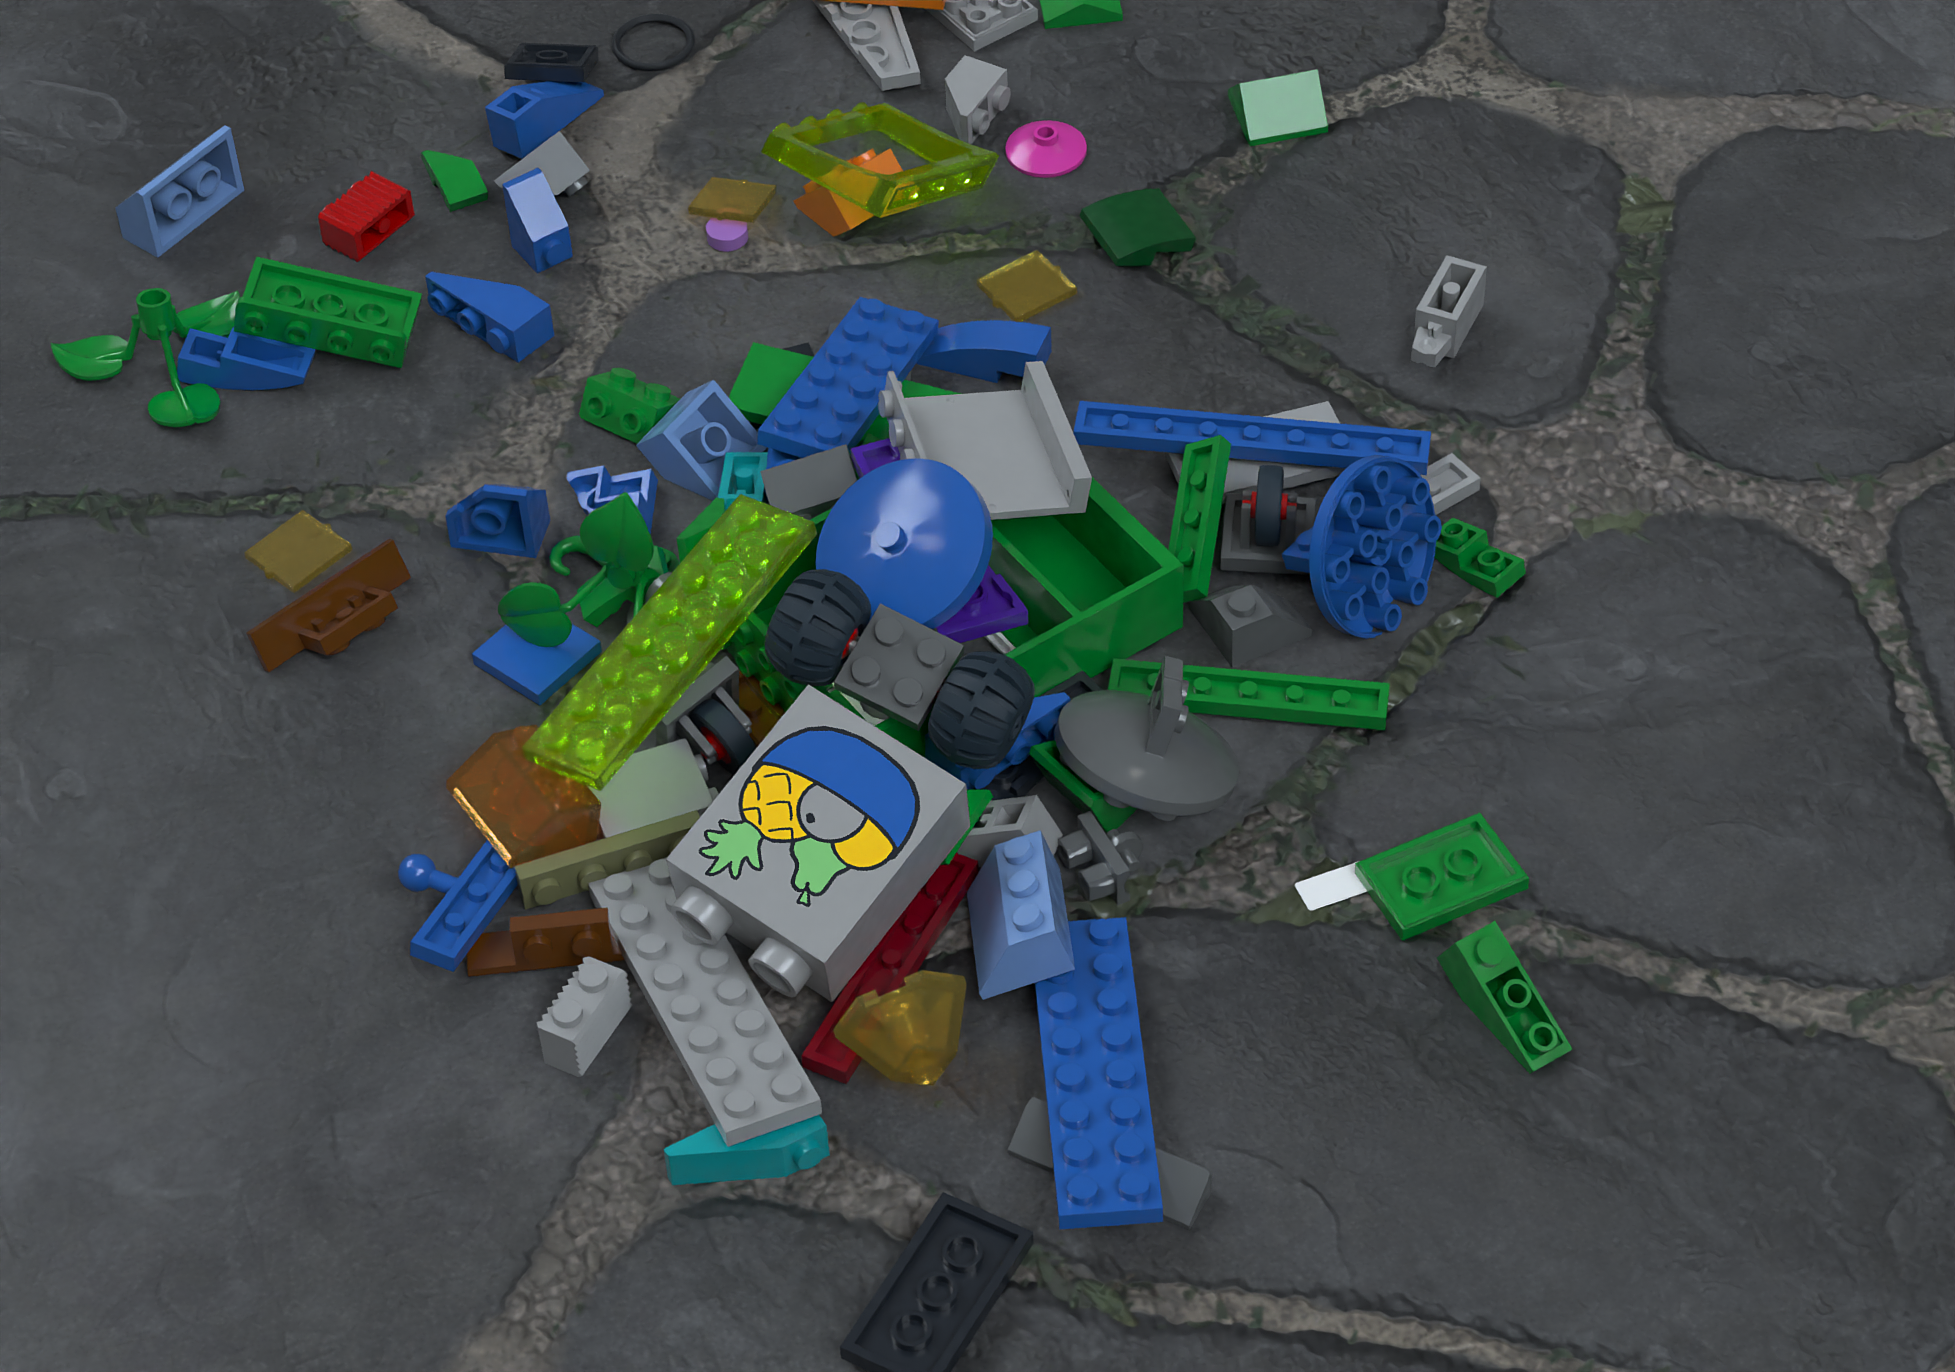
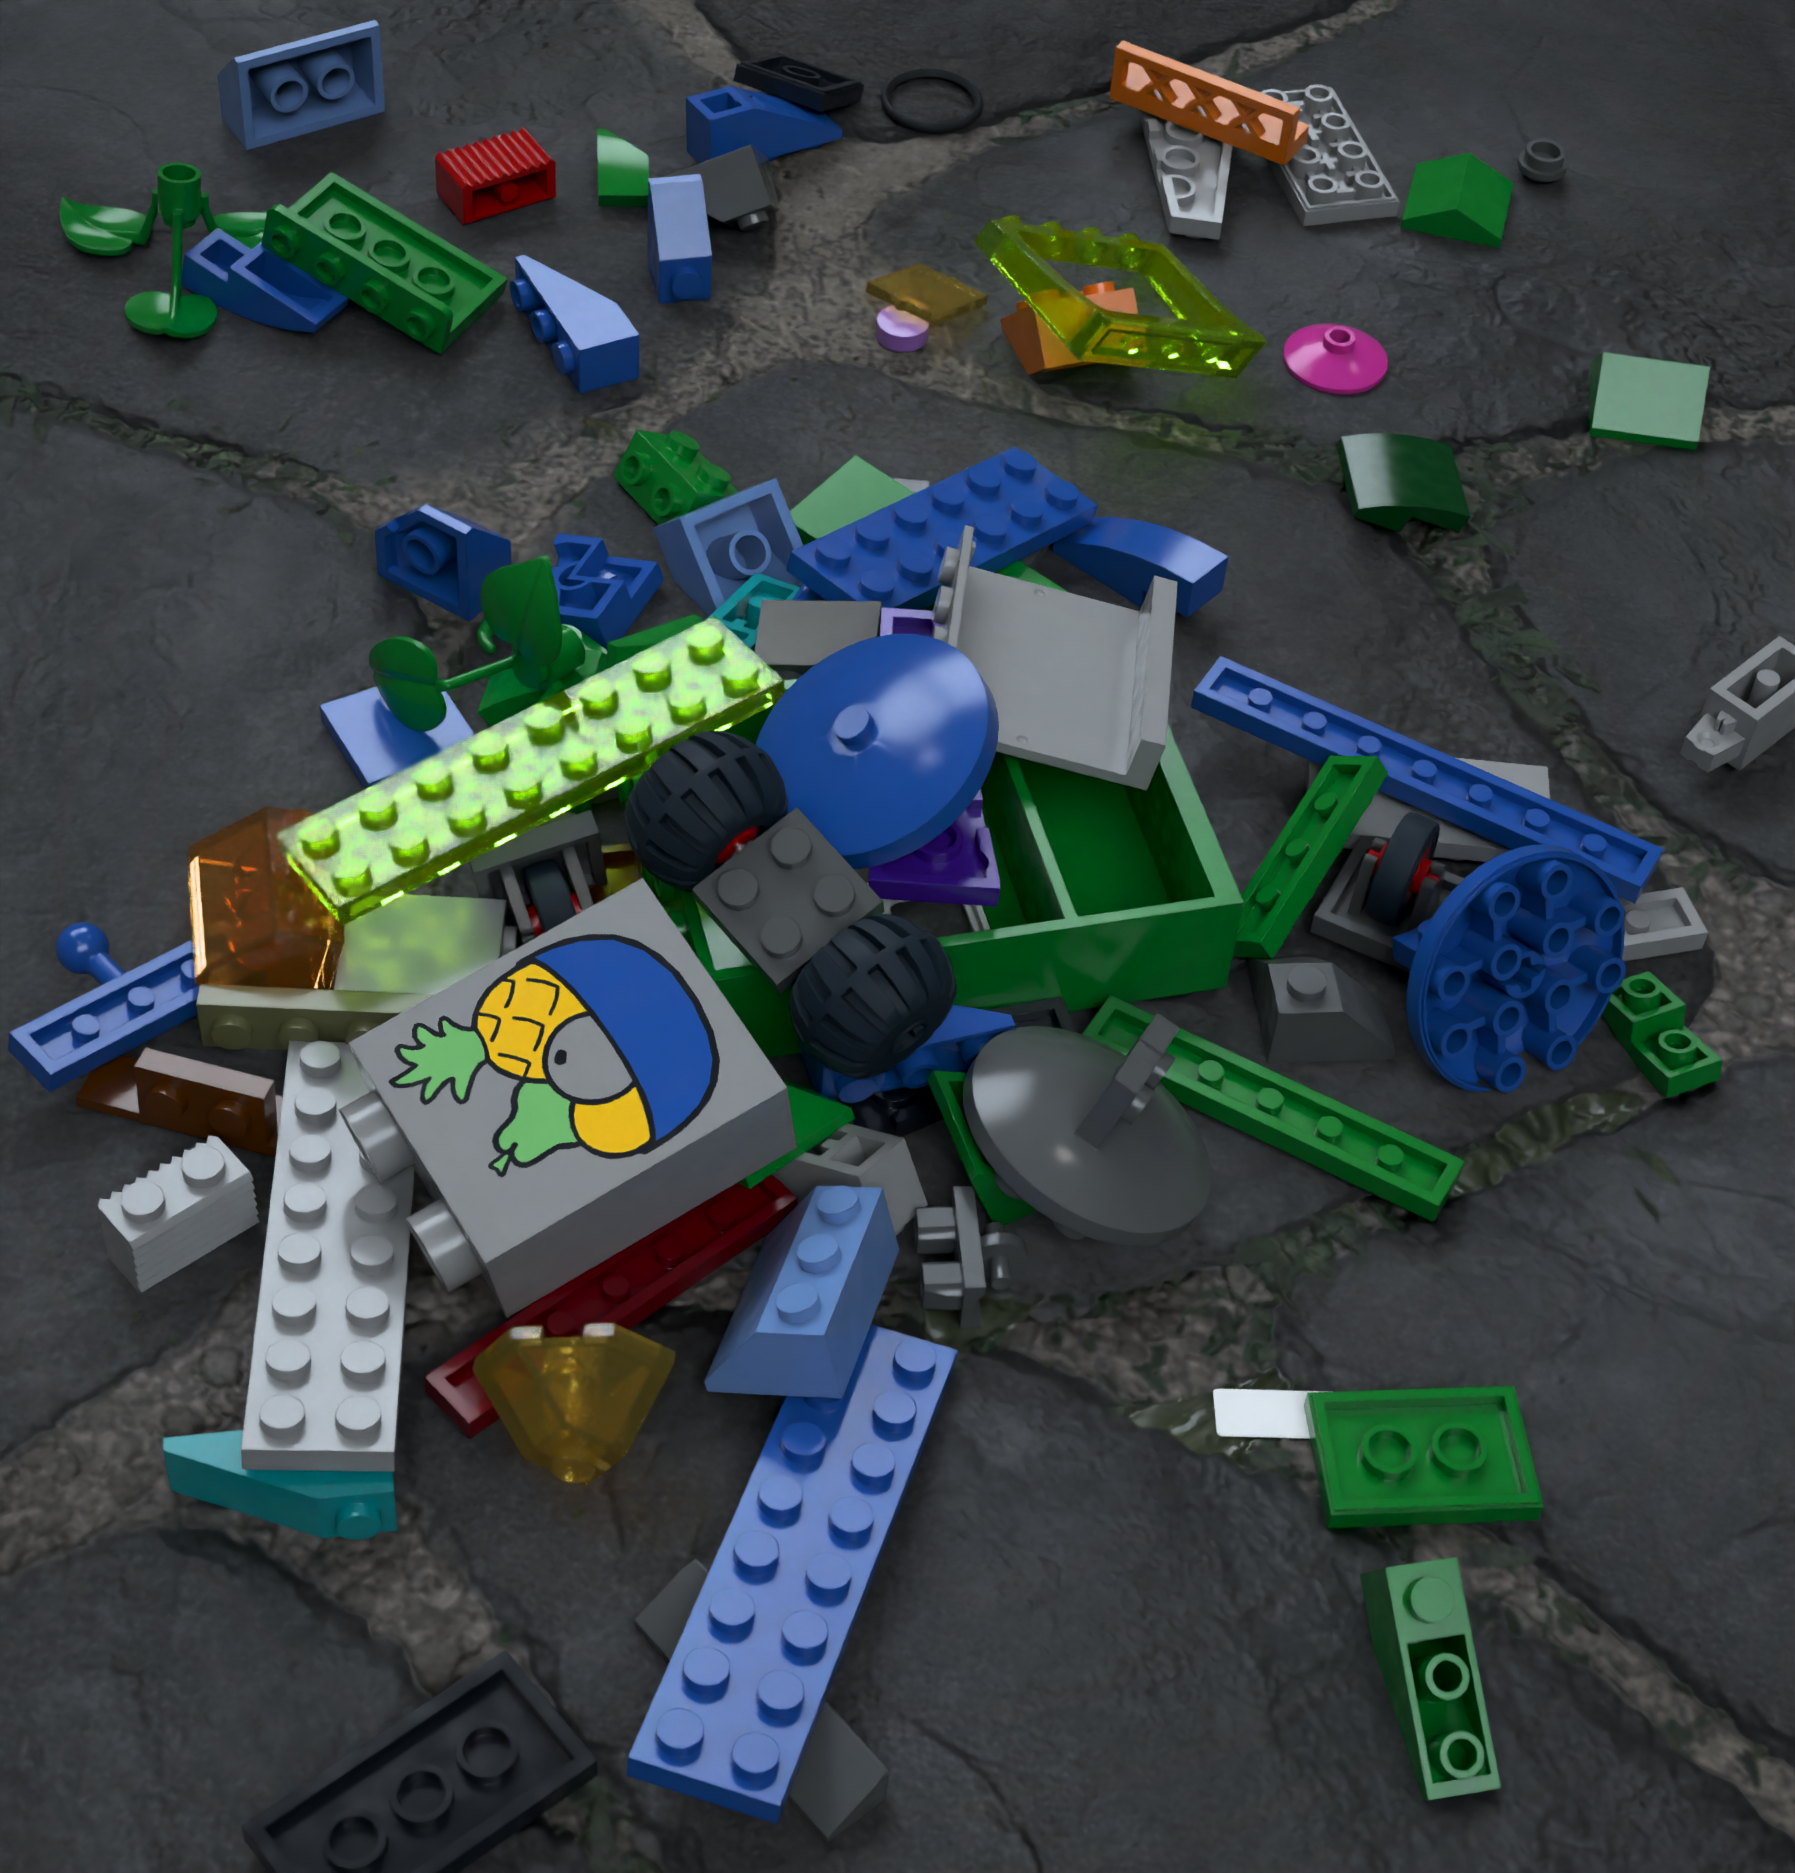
camera: 15 degrees right, 0 degrees up
(298, 551) = (197, 517): clear yellow piece -> none
(334, 610) = (188, 596): reddish brown bracket -> none
(975, 96) = (1276, 271): light grey slope -> none
(1027, 286) = (1233, 506): clear yellow piece -> none

